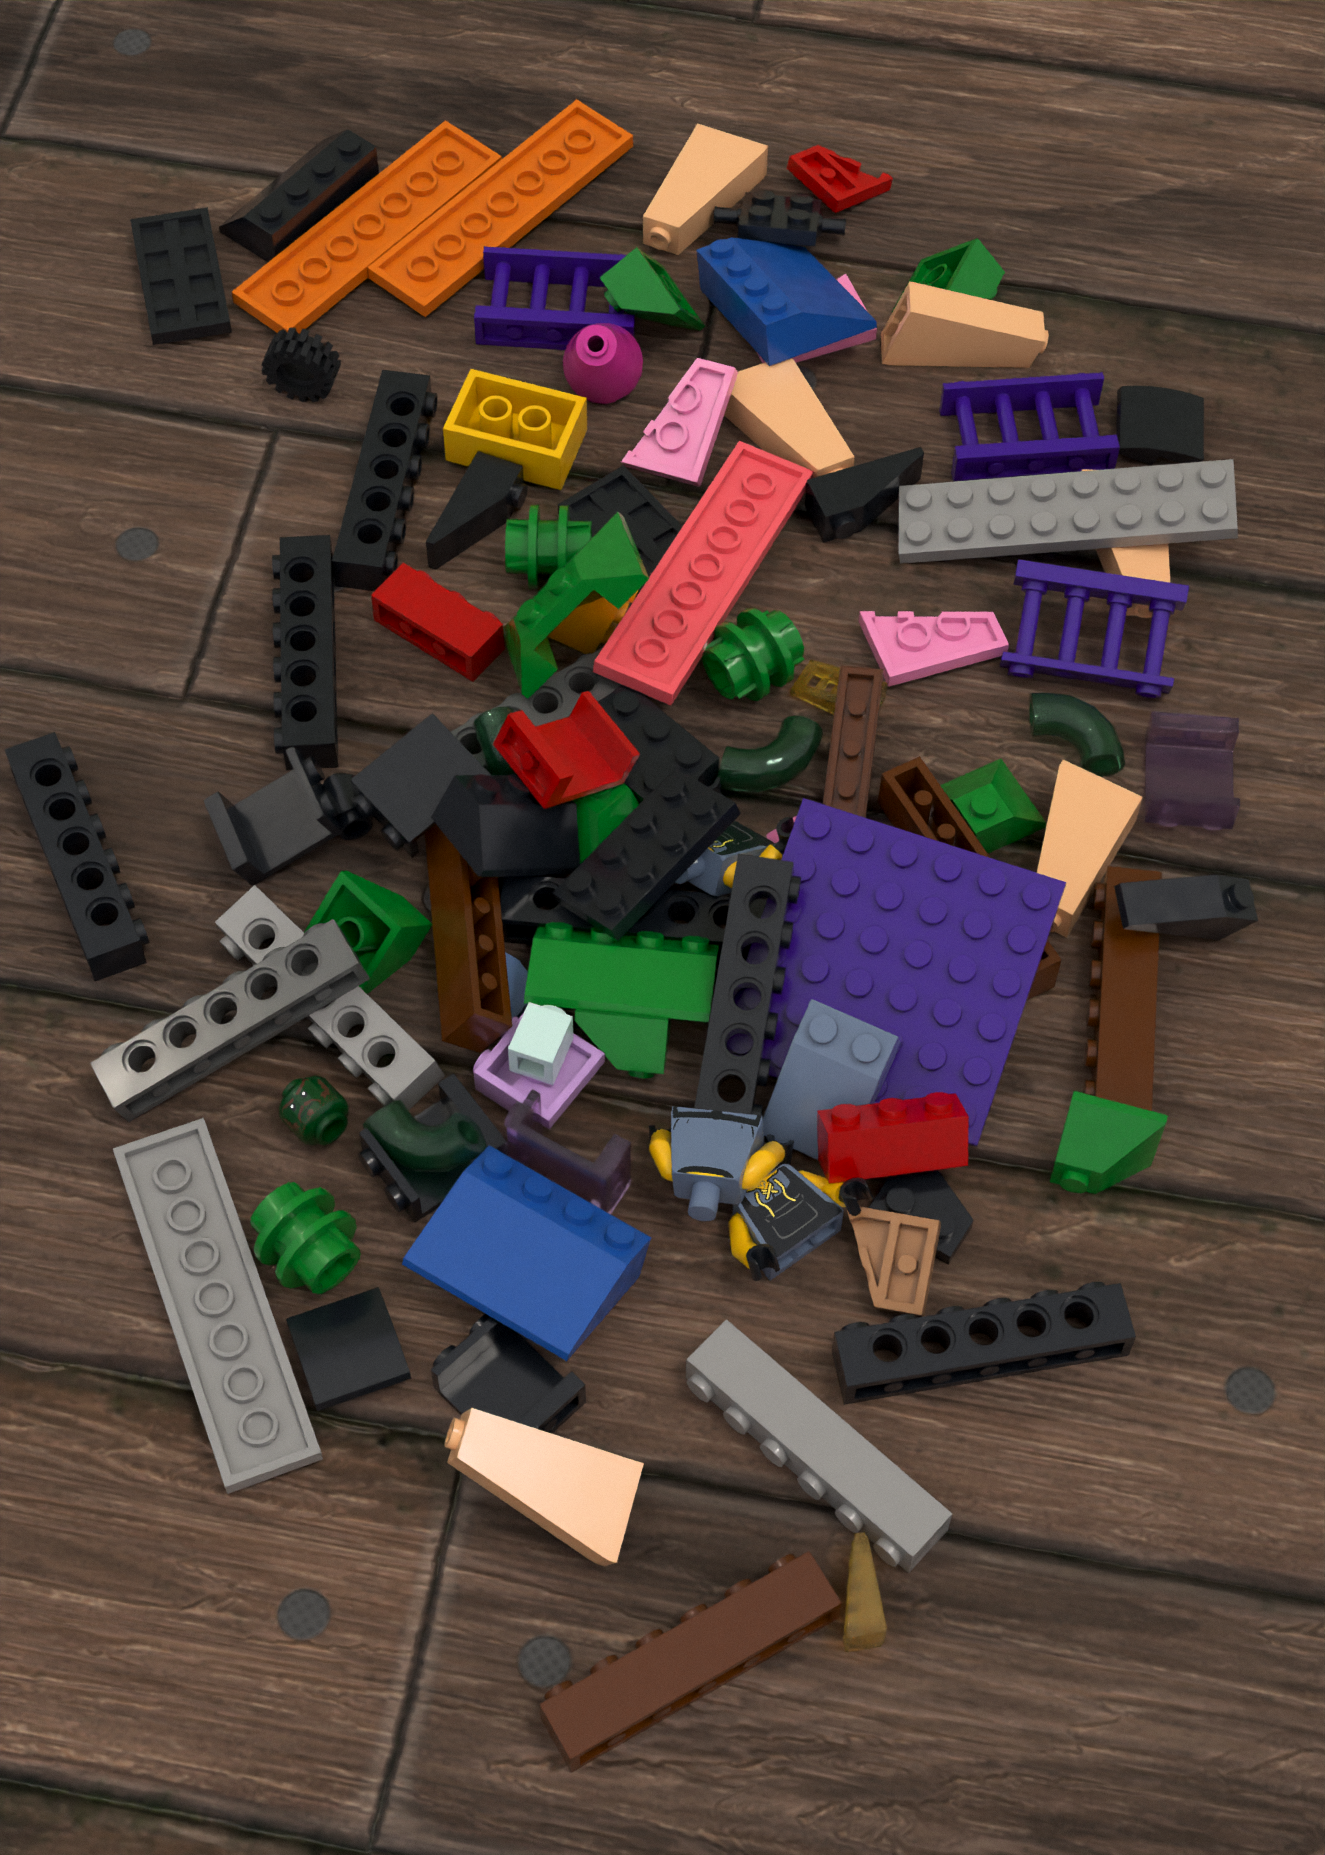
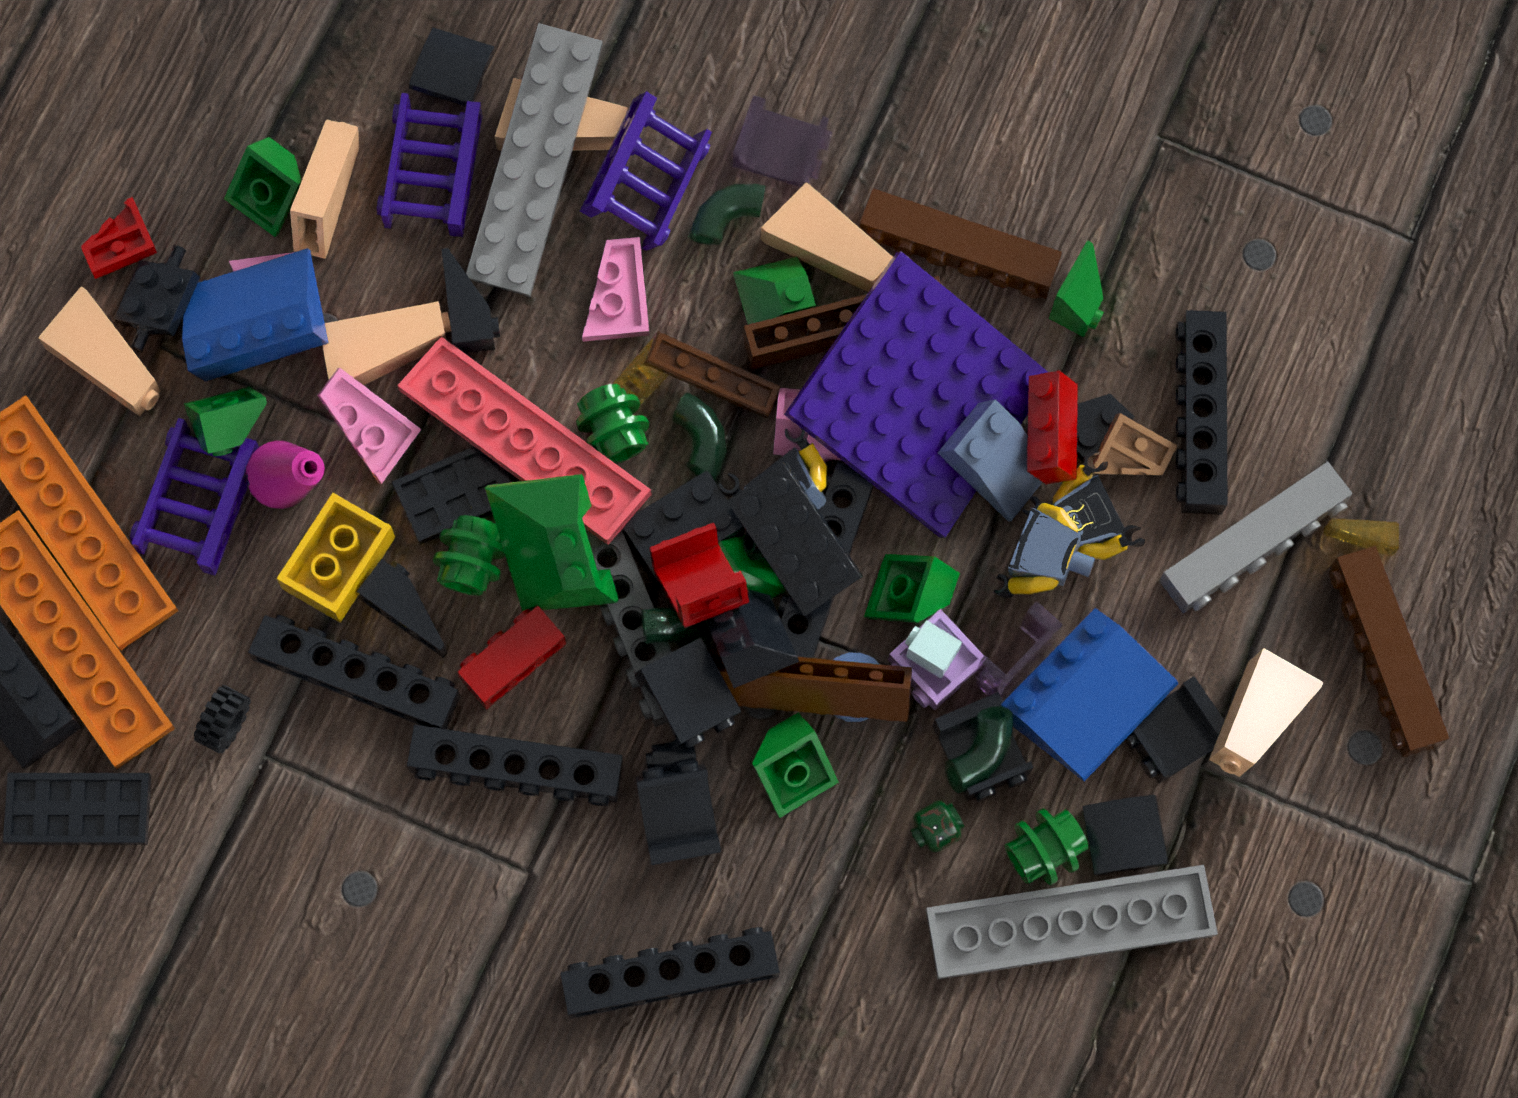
camera: 80 degrees left, 15 degrees up
(217, 1043) = (893, 956): dark grey brick -> none
(411, 1071) = (917, 748): light grey brick -> none
(622, 976) = (876, 608): green slope -> none
(753, 879) = (850, 468): black brick -> none
(1187, 906) = (909, 178): black slope -> none

